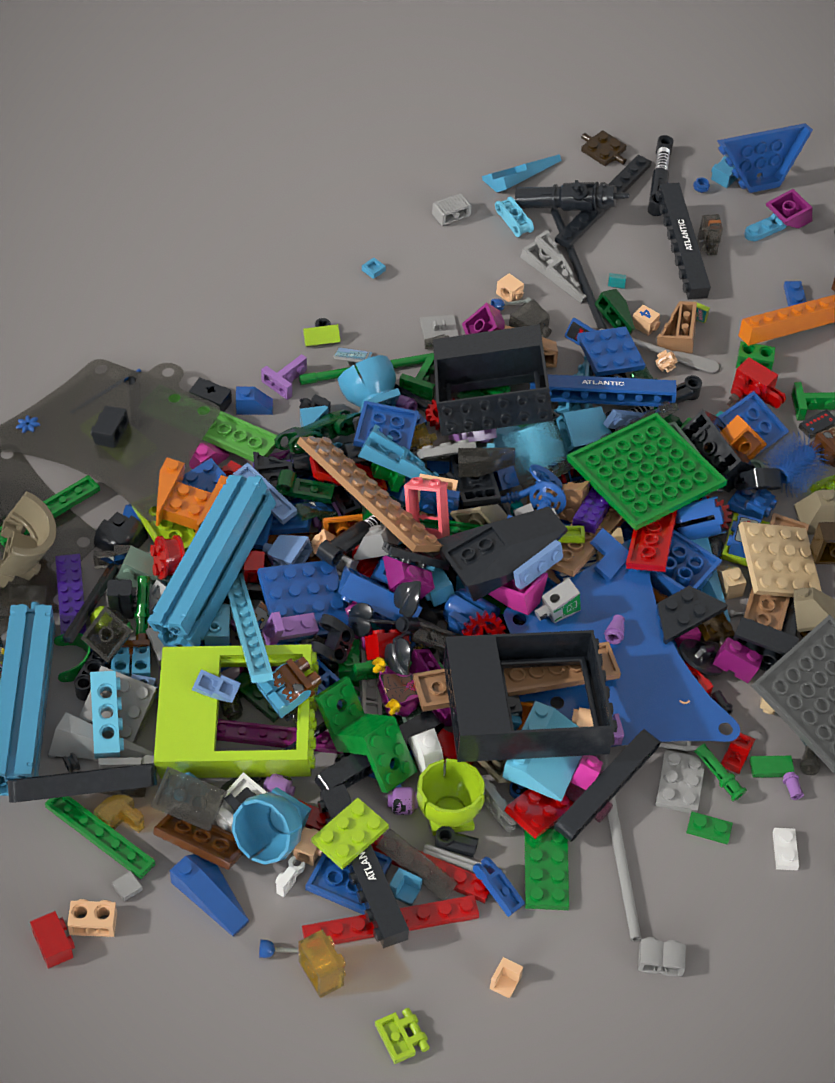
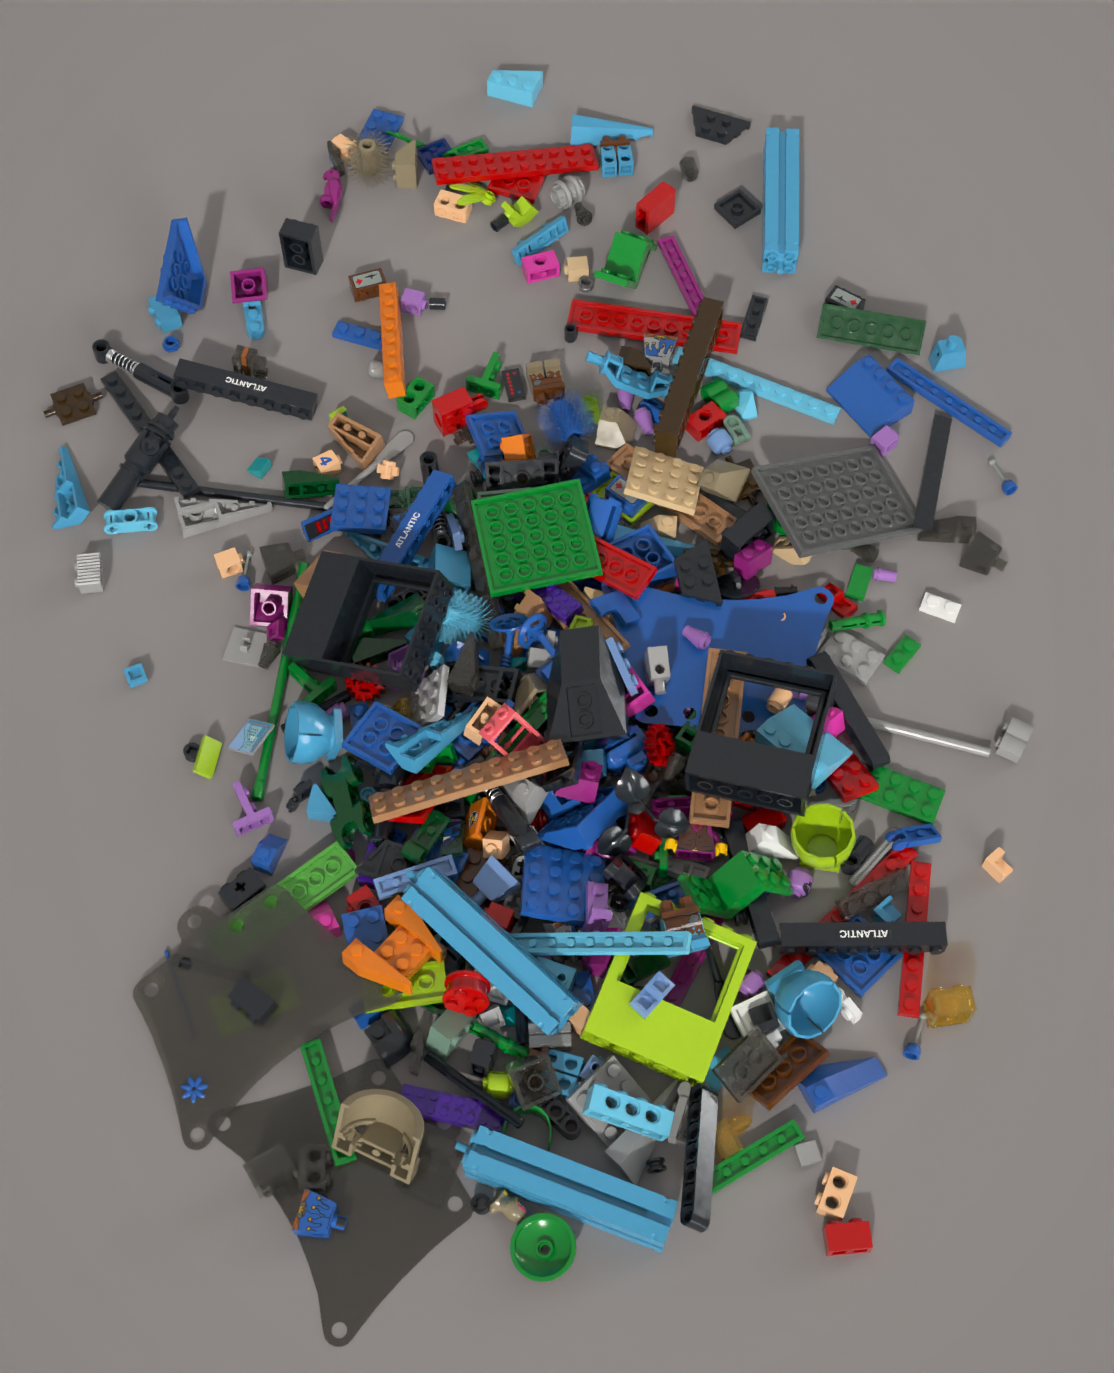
camera: 65 degrees left, 10 degrees up
(349, 833) = (836, 935): lime plate -> none
(395, 1037) = (1027, 973): lime plate -> none

